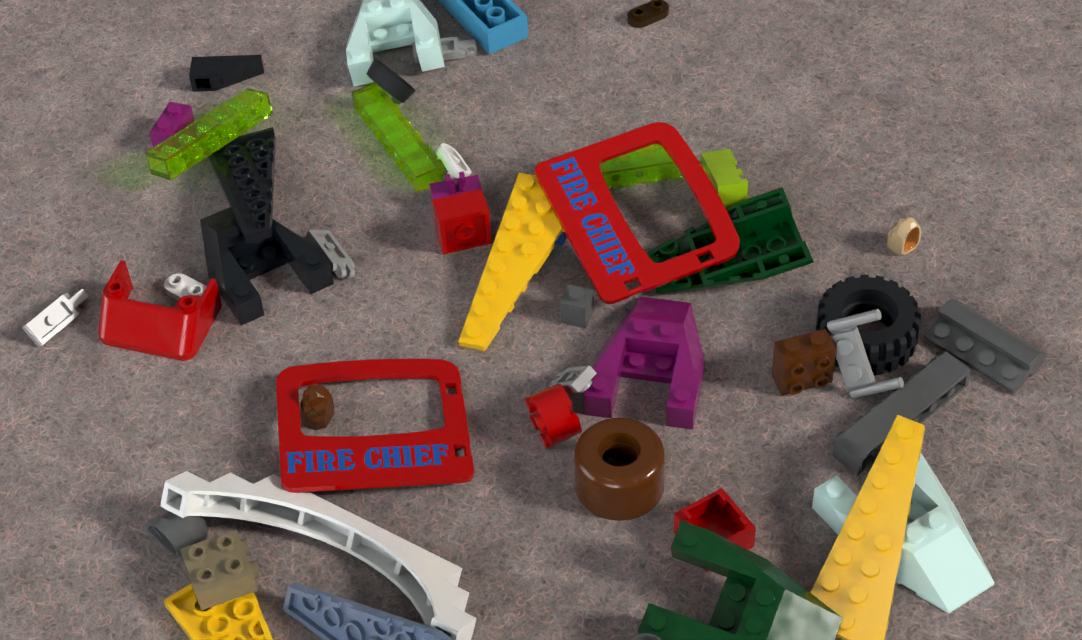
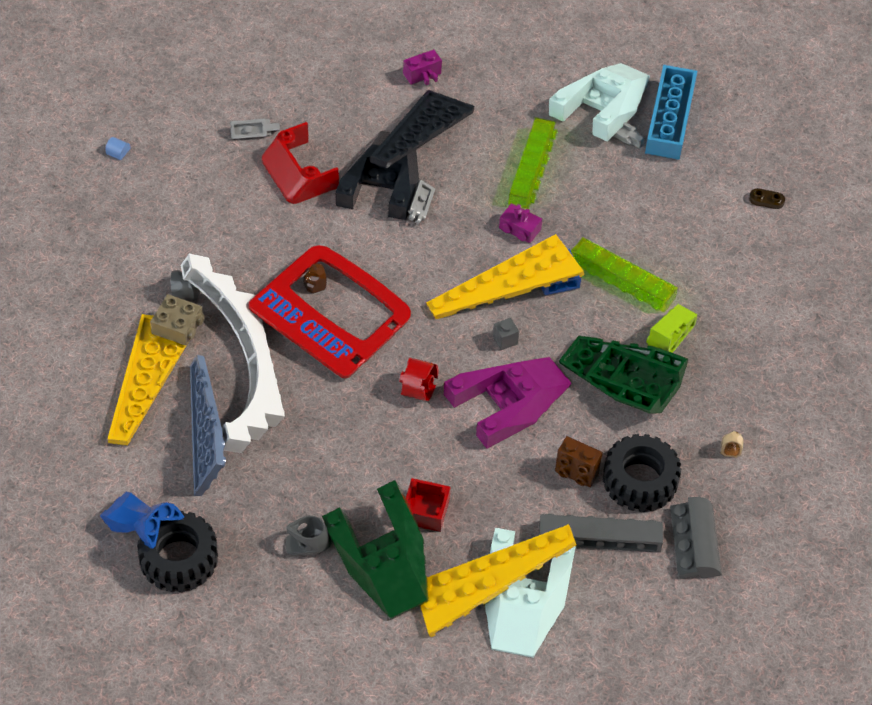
camera: 40 degrees right, 5 degrees up
(181, 285) = (329, 160): white plate -> none
(209, 134) = (434, 84): clear neon green brick -> none
(218, 72) = (485, 51): black slope -> none
(390, 81) = (569, 125): black tyre -> none
(452, 161) = (543, 201): white plate -> none
(462, 221) = (500, 237): red container -> none
(575, 379) = (447, 370): light grey hinge -> none
(599, 231) = (561, 295): red door -> none
(619, 491) = (412, 449): reddish brown piece -> none
(853, 357) = (602, 481): light grey plate -> none

